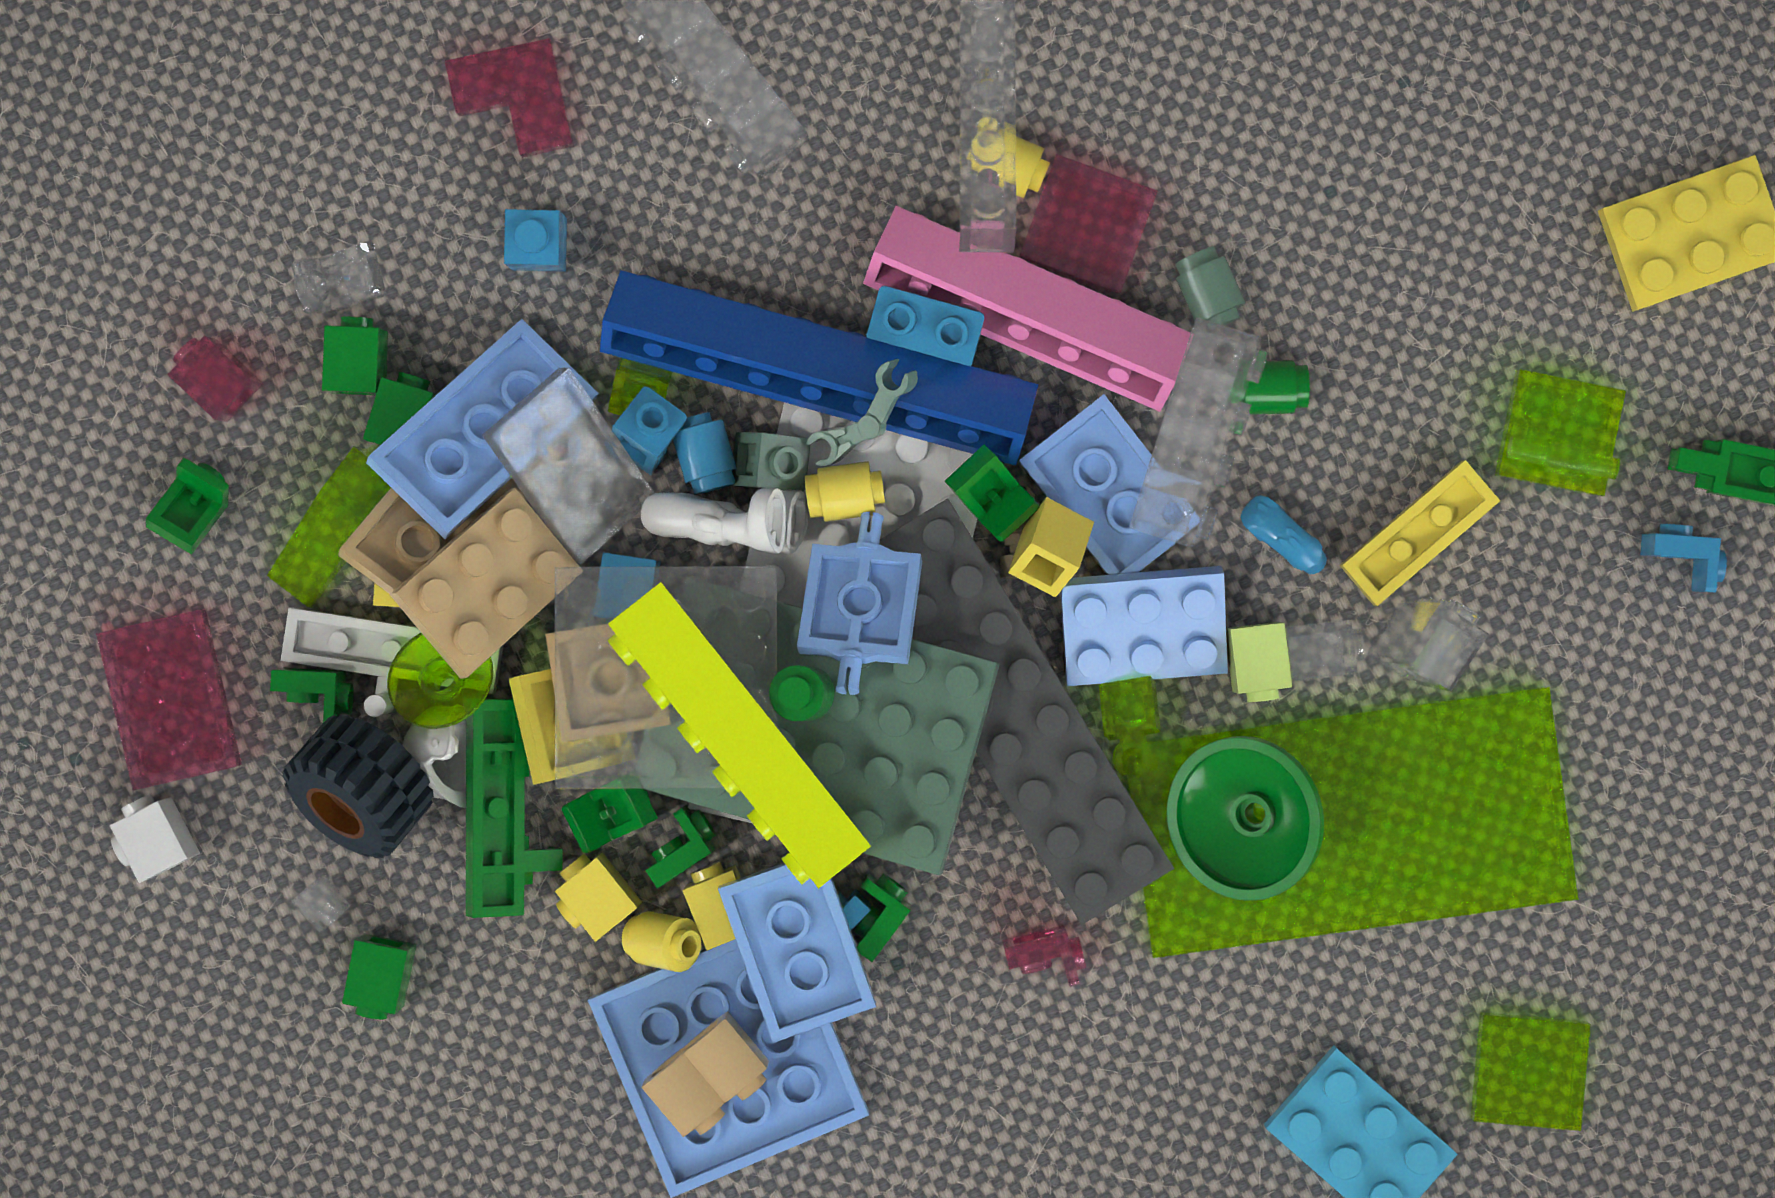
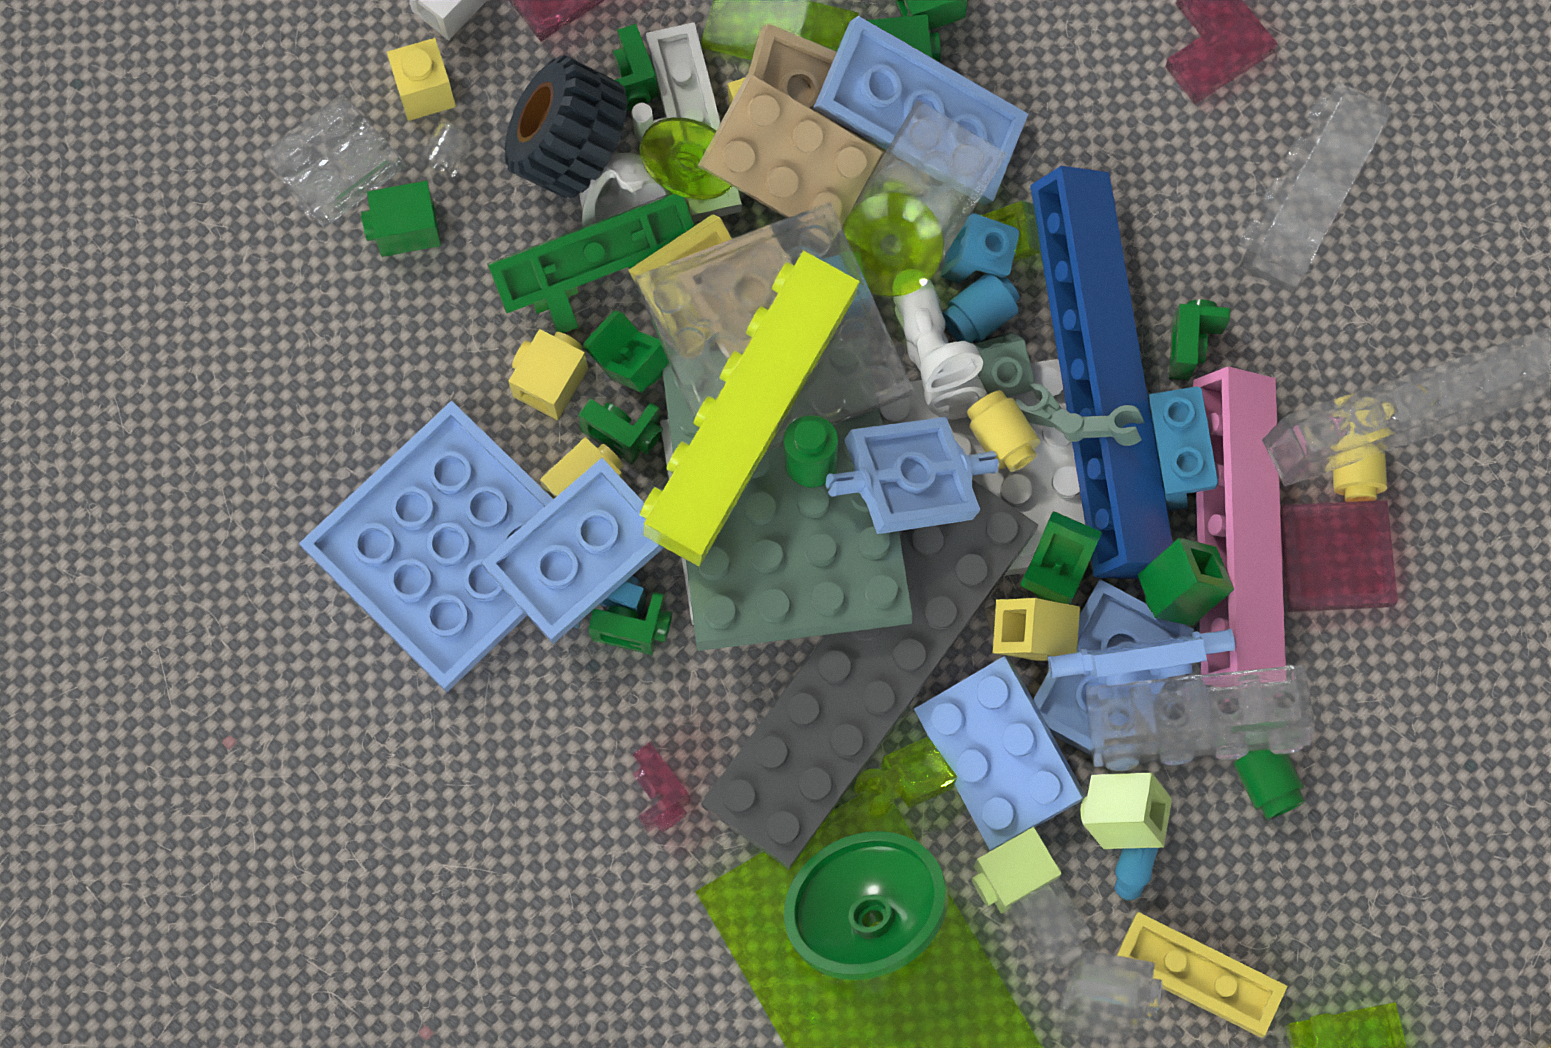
camera: 60 degrees right, 15 degrees down
(238, 901) = (421, 79): none -> light yellow brick
(292, 1021) = (332, 161): none -> clear plate
(535, 240) = (1101, 97): dark azure brick -> none
(641, 526) = (919, 240): none -> clear neon green dish
(662, 941) = (531, 441): light yellow brick -> none
(706, 1075) = (425, 522): tan brick -> none
(823, 270) = (1190, 337): none -> green bracket
(1063, 386) = (1185, 582): none -> green brick
(1123, 463) = (1163, 658): none -> light blue plate
(1209, 287) = (1337, 684): sand green brick -> none
(1254, 539) = (1126, 811): none -> yellowish green brick

